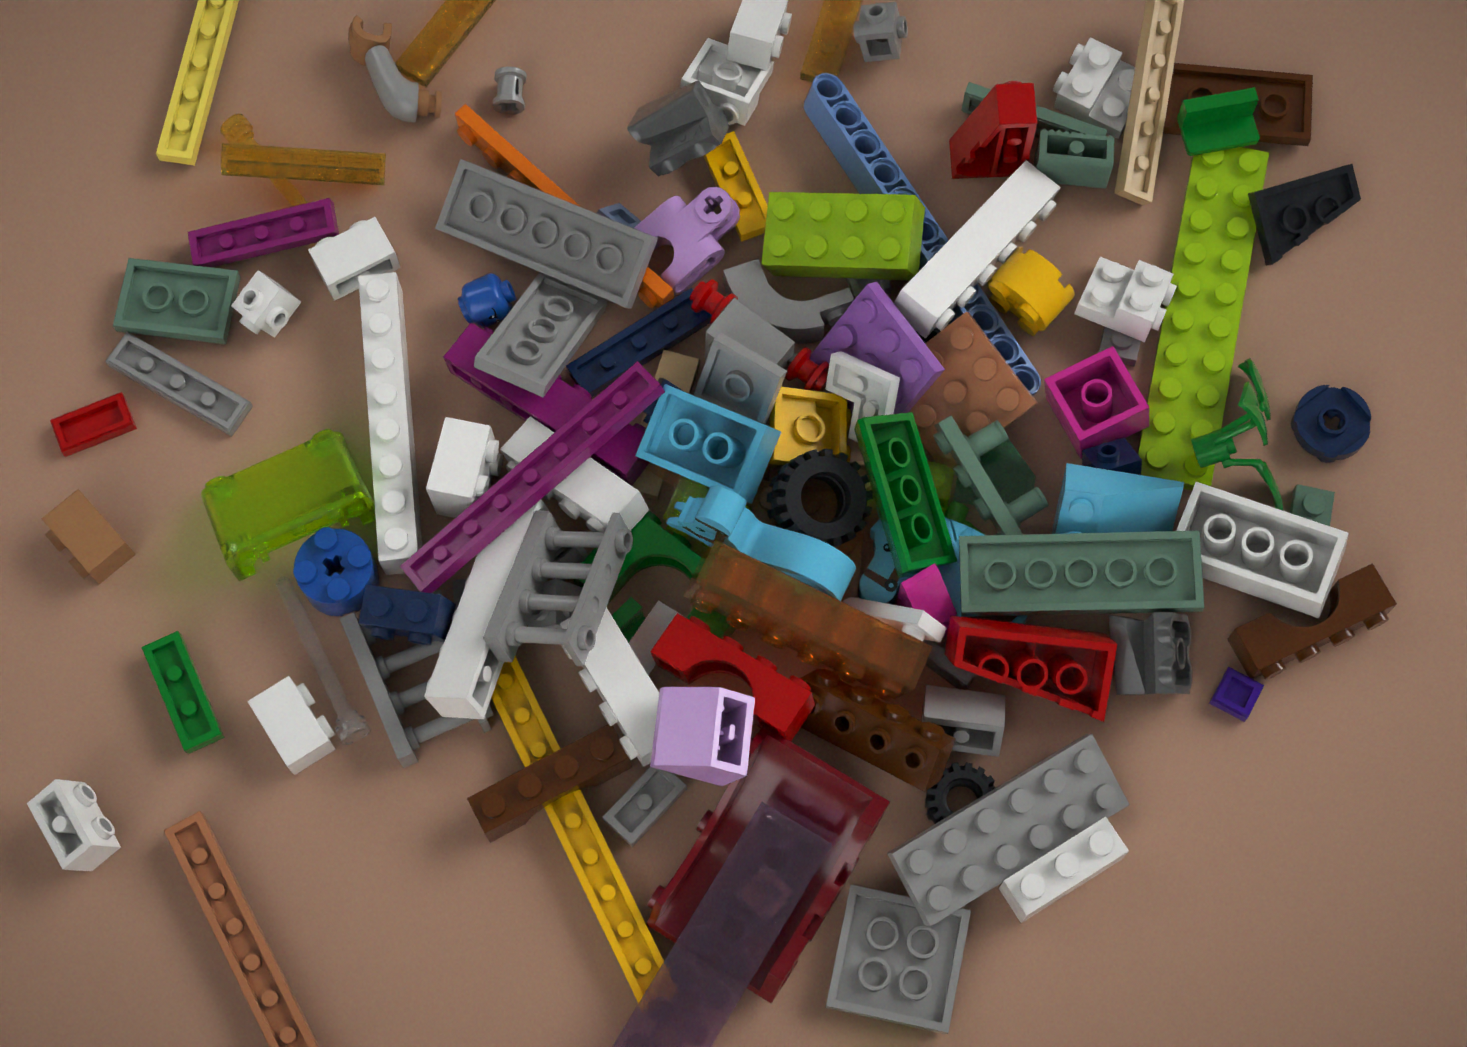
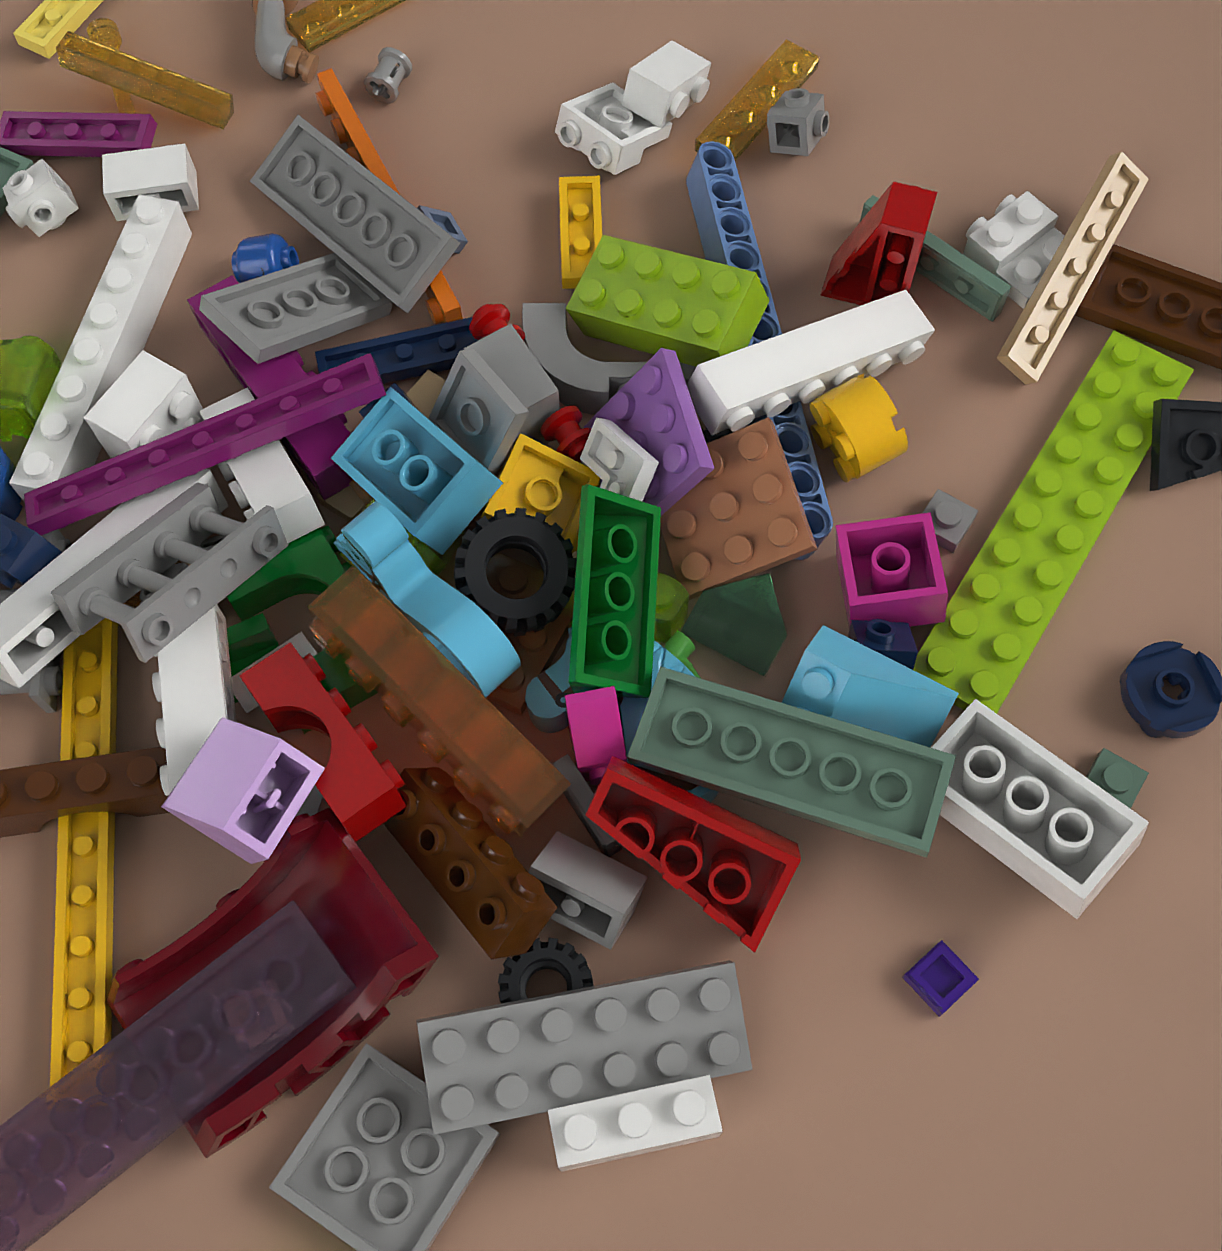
camera: 20 degrees right, 5 degrees down
(644, 804) = (169, 859): light grey plate -> none
(679, 127) = (536, 145): dark grey piece -> none
(692, 233) = (507, 258): lavender piece -> none
(908, 620) = (549, 739): white plate -> none
(970, 473) = (711, 577): sand green plate -> none
(1075, 158) = (963, 305): sand green brick -> none
(1127, 297) = (968, 472): white plate -> none
(1152, 654) = (847, 889): dark grey piece -> none
(1219, 121) = (1146, 313): green panel -> none
(1219, 444) = (1022, 666): green plant -> none
(1354, 602) = (1132, 915): reddish brown arch -> none

